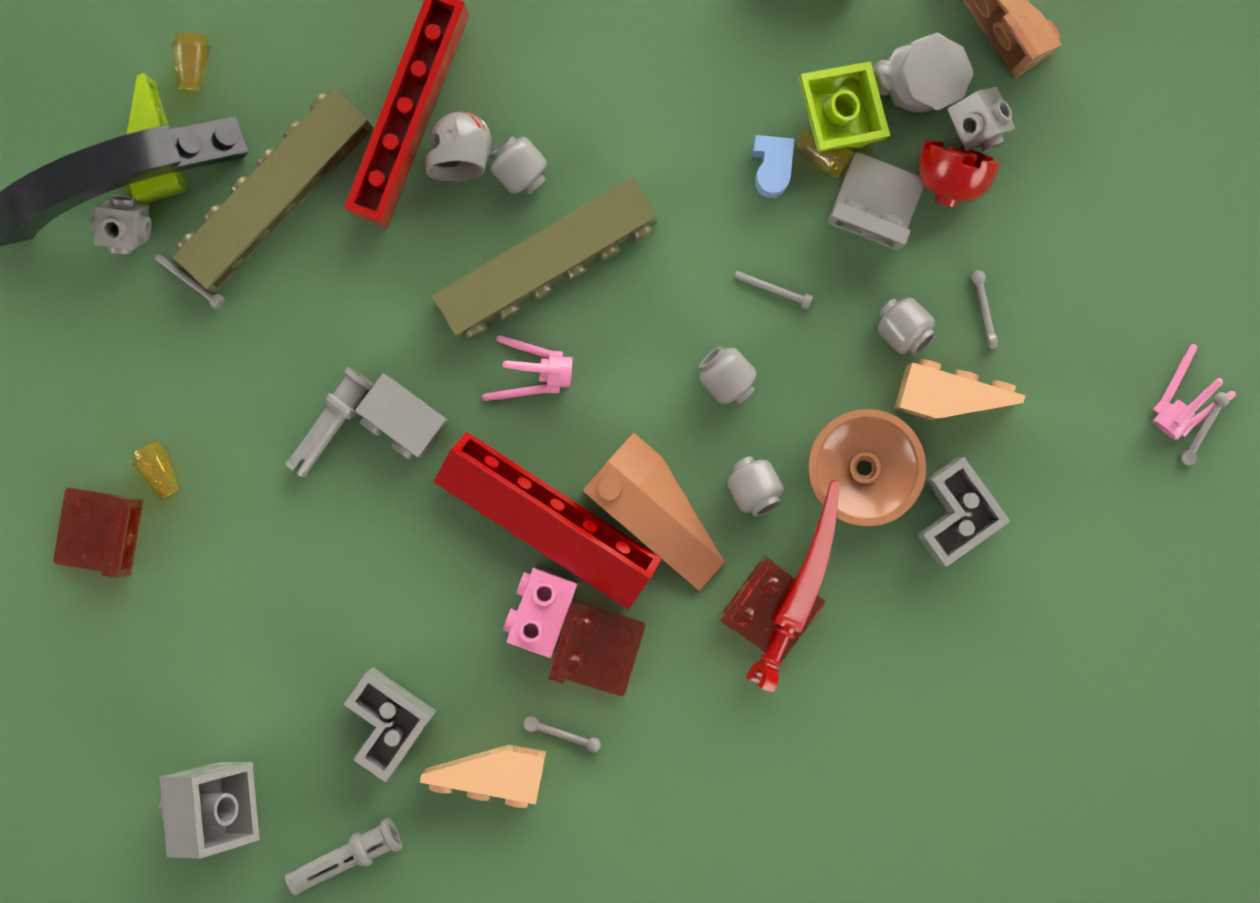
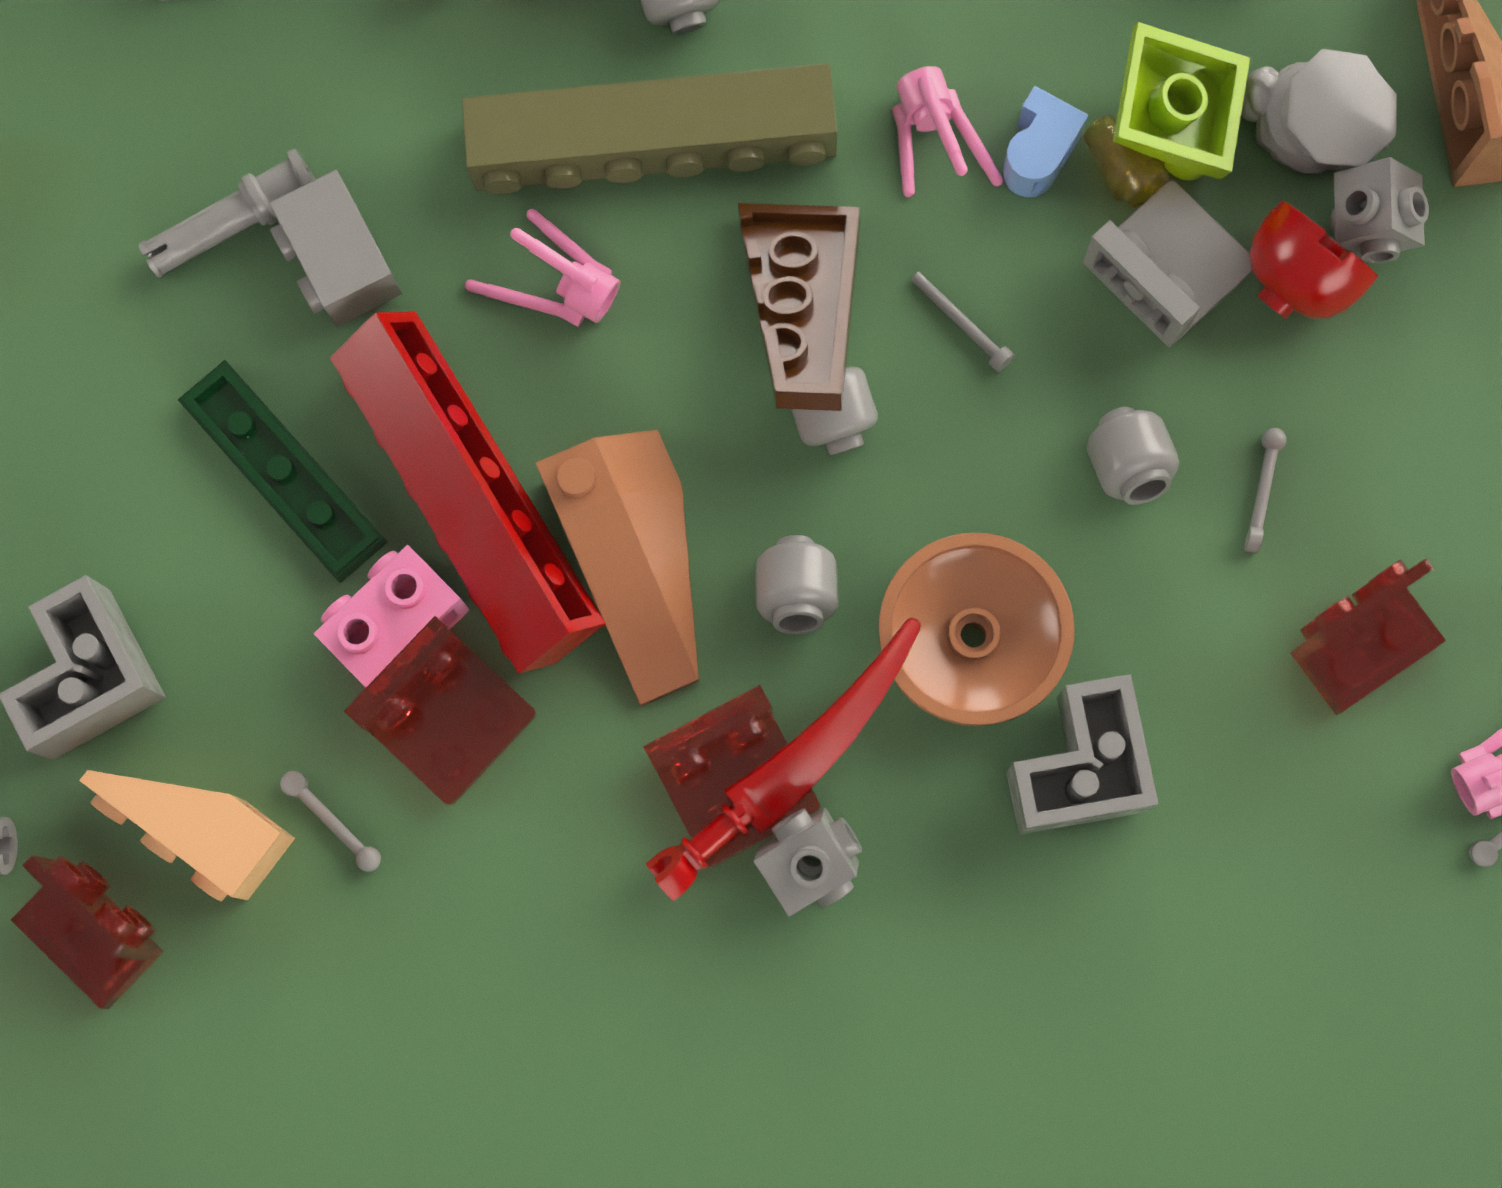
camera: 30 degrees right, 10 degrees down
(434, 554) = (282, 471): none -> dark green tile
(461, 856) = (85, 929): none -> clear red bracket
(681, 318) = (803, 296): none -> wing
(697, 170) = (930, 107): none -> bright pink plant
(834, 635) = (800, 880): none -> light grey brick
(940, 394) = (1146, 583): light nougat slope -> none
(1079, 370) = (1365, 645): none -> clear red bracket

